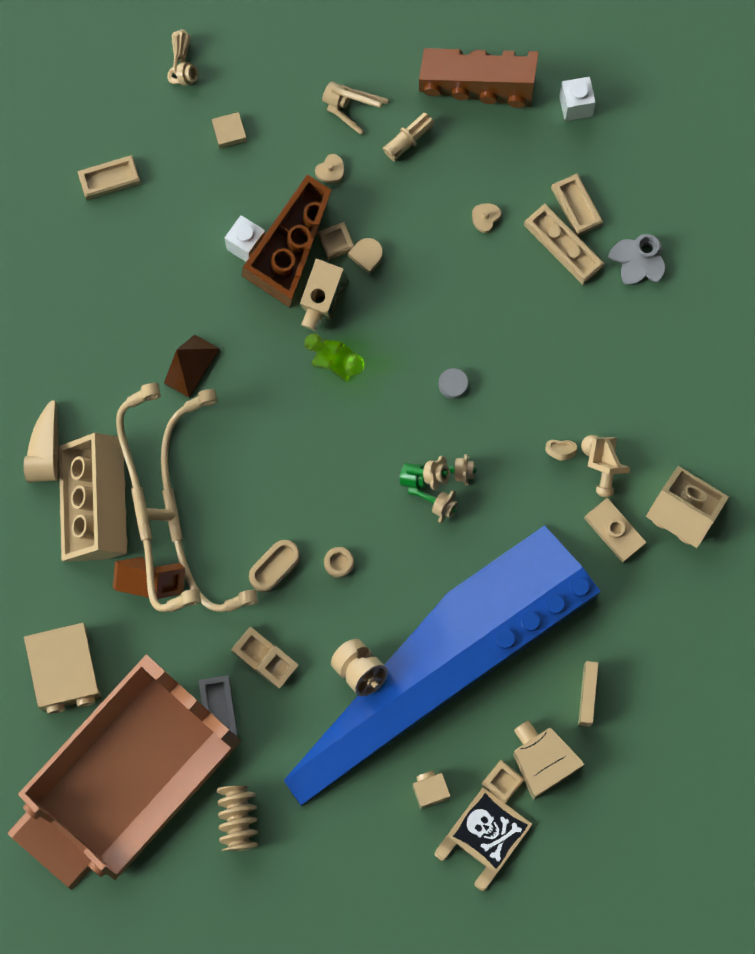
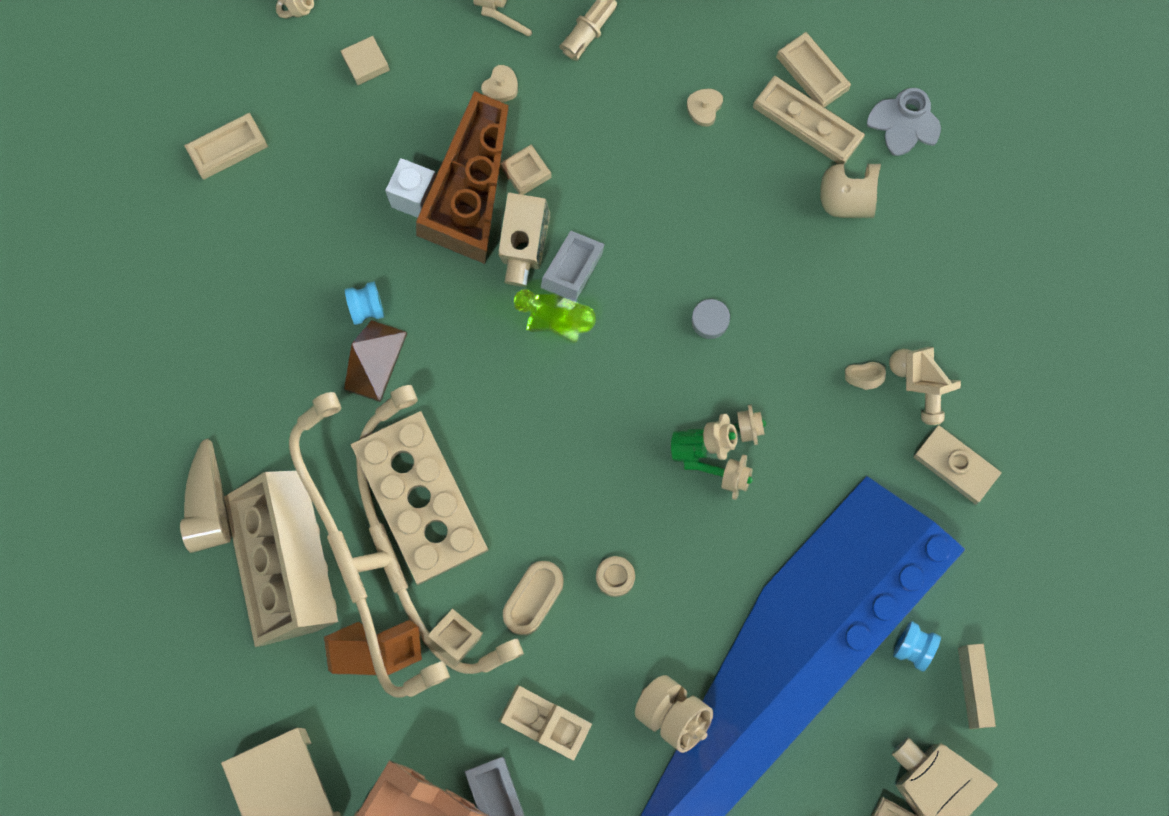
camera: 10 degrees left, 0 degrees up
(191, 320) = (364, 303): none -> medium azure wheel
(193, 492) = (445, 505): none -> tan plate
(210, 582) = (453, 637): none -> tan tile
(355, 322) = (572, 266): none -> light grey tile
(366, 254) = (567, 179): tan tile -> none
(551, 656) = (917, 646): none -> medium azure wheel
(578, 310) = (847, 196): none -> tan helmet
(687, 507) = (1043, 418): tan slope -> none

